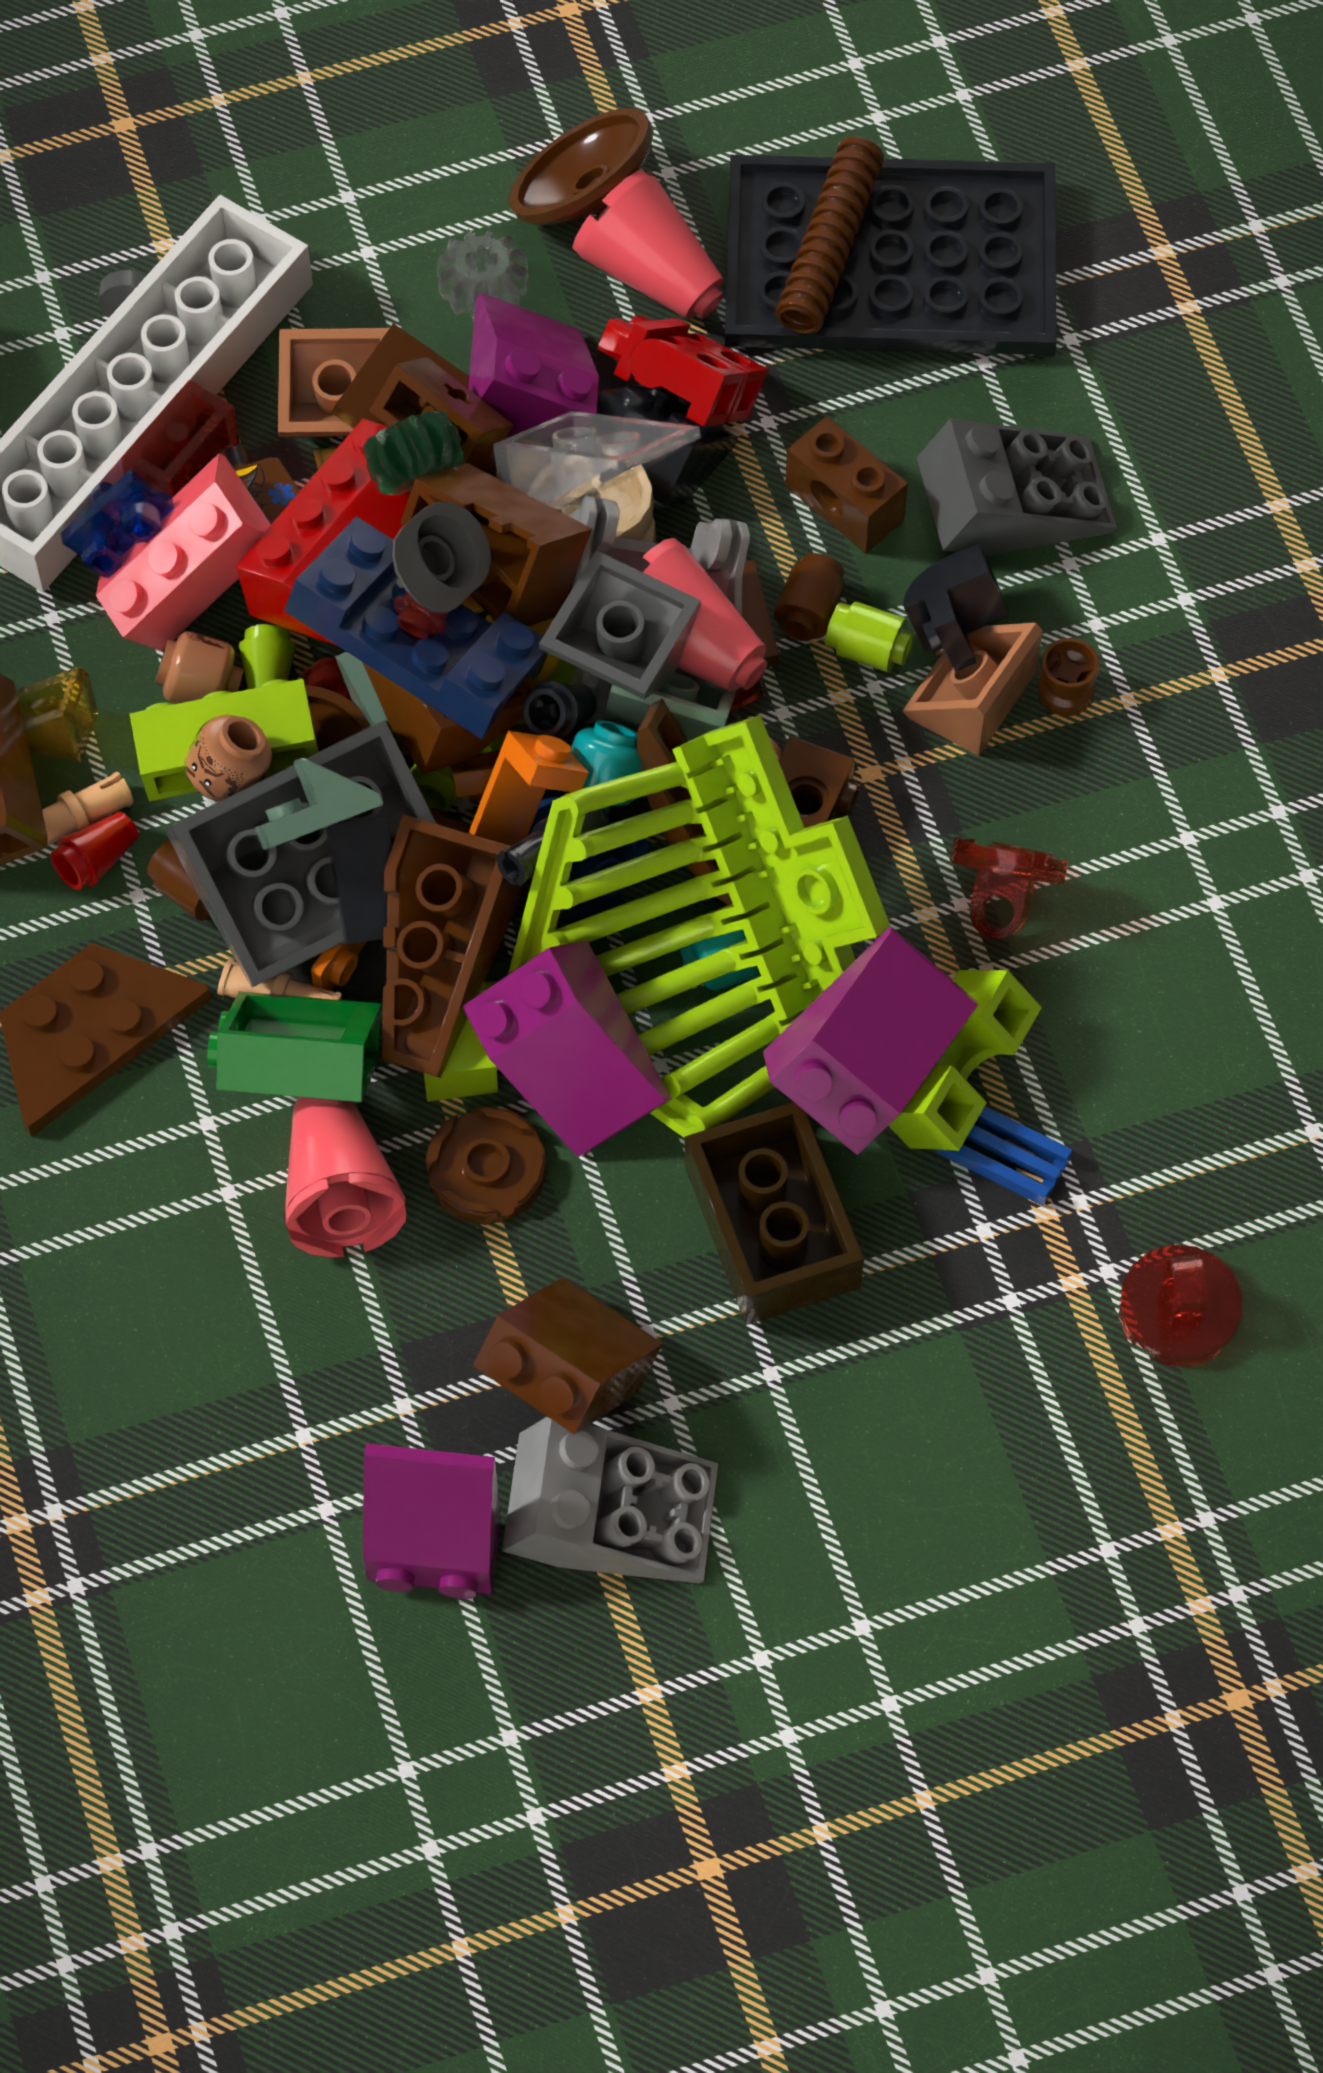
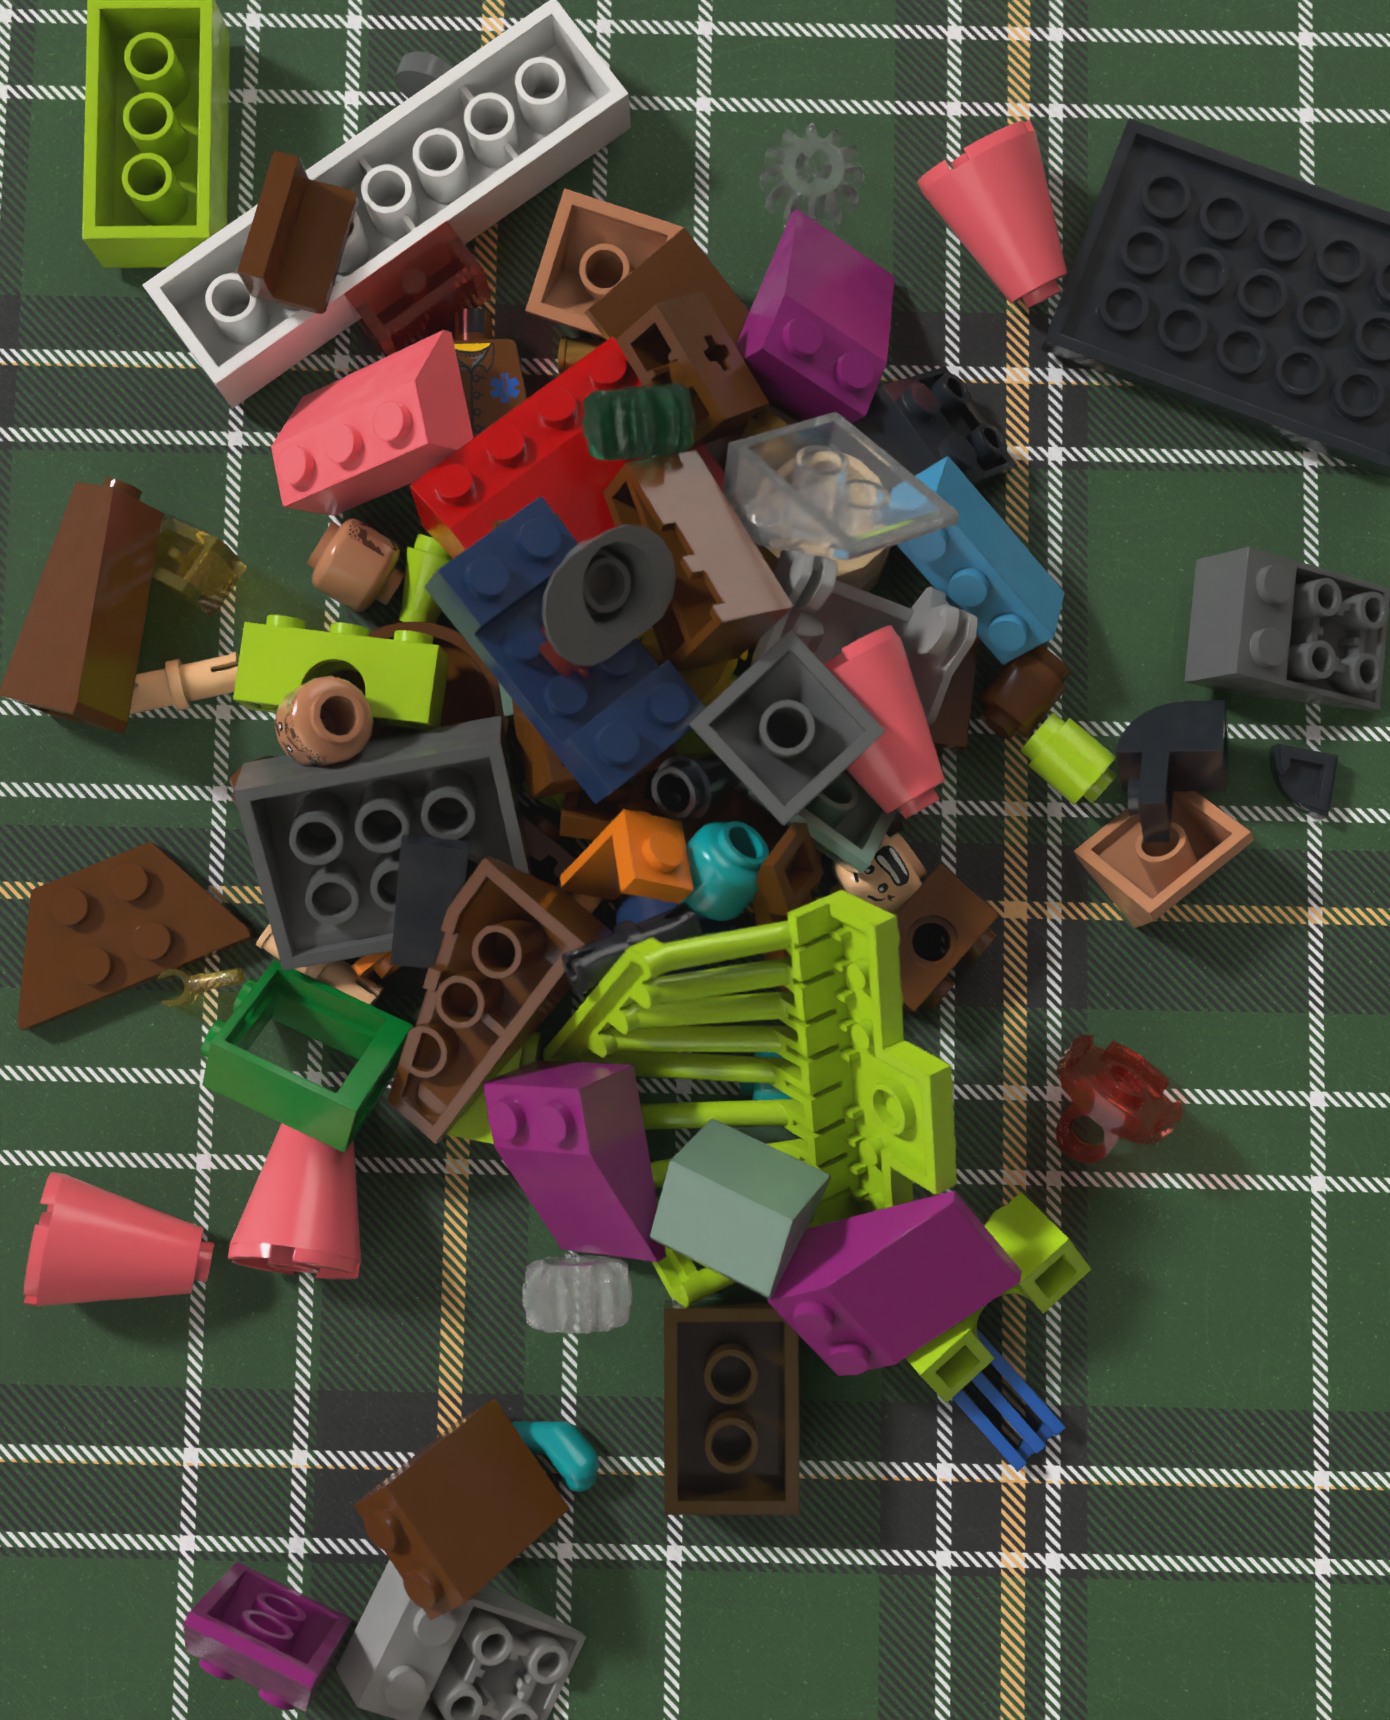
camera: 20 degrees right, 20 degrees up
(70, 424) = (296, 237): none -> reddish brown panel
(93, 850) = (186, 734): red cone -> none
(116, 521) = (312, 372): clear blue hips -> none
(170, 1043) = (200, 983): none -> clear yellow hand
(175, 1264) = (109, 1248): none -> coral cone
(330, 801) = (408, 827): sand green slope -> none
(486, 1165) = (466, 1227): reddish brown tile -> none
(581, 168) = (961, 86): reddish brown dish -> none
(605, 1167) = (577, 1294): none -> clear gear
(647, 1310) = (565, 1448): none -> teal arm
(696, 368) = (984, 374): red hips -> none
(715, 1027) = (737, 1206): none -> sand green slope
(716, 485) = (986, 569): none -> dark azure brick
(829, 235) = (1201, 261): reddish brown piece -> none
(846, 484) = (1109, 569): reddish brown brick -> none
(1068, 677) = (1275, 878): reddish brown wheel -> none
(1074, 596) = (1304, 778): none -> black tile
(1180, 1305) = (1112, 1633): clear red tile -> none

